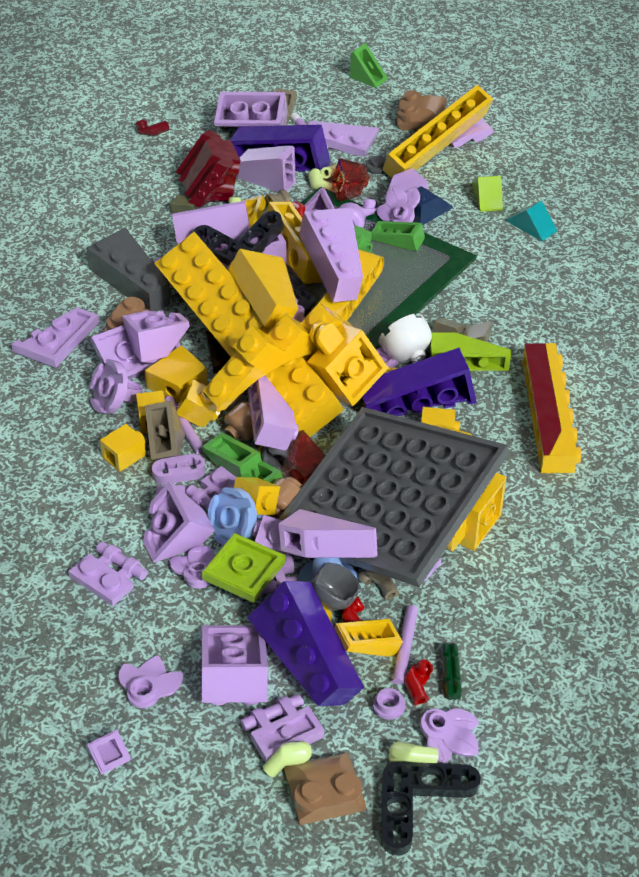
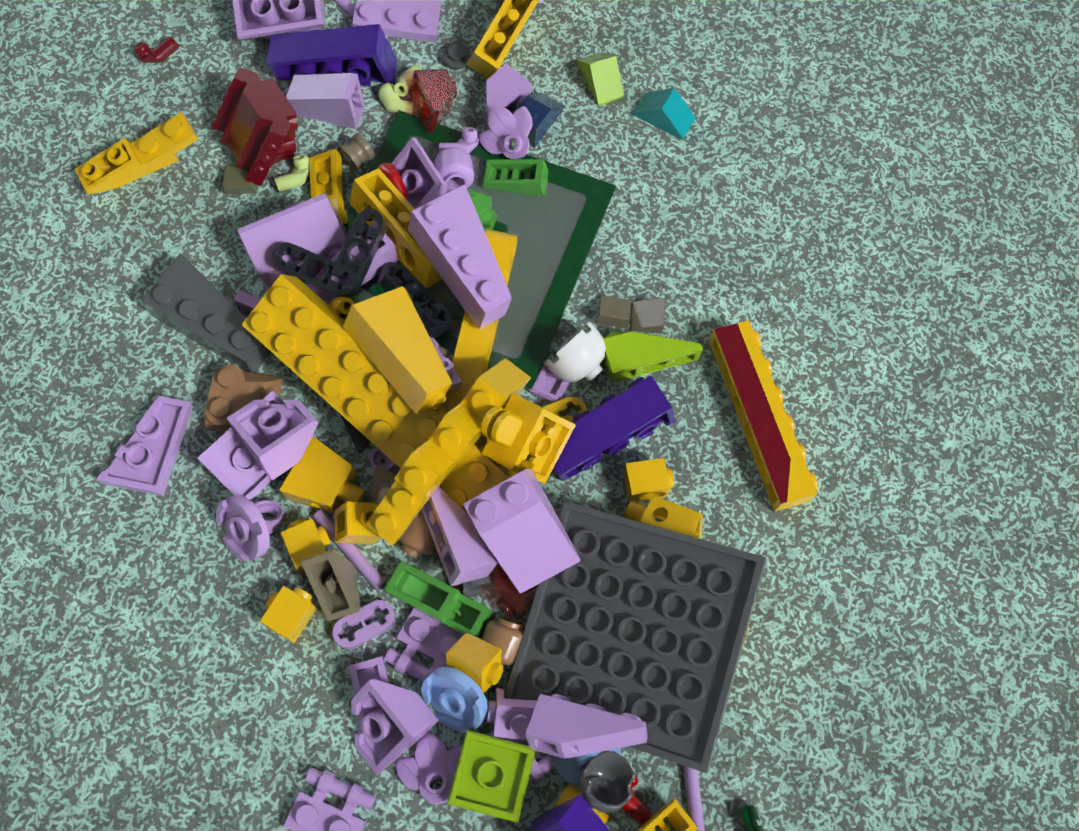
camera: 20 degrees left, 25 degrees up
(106, 180) = (133, 160): none -> yellow slope
(321, 409) = (522, 530): none -> lavender slope

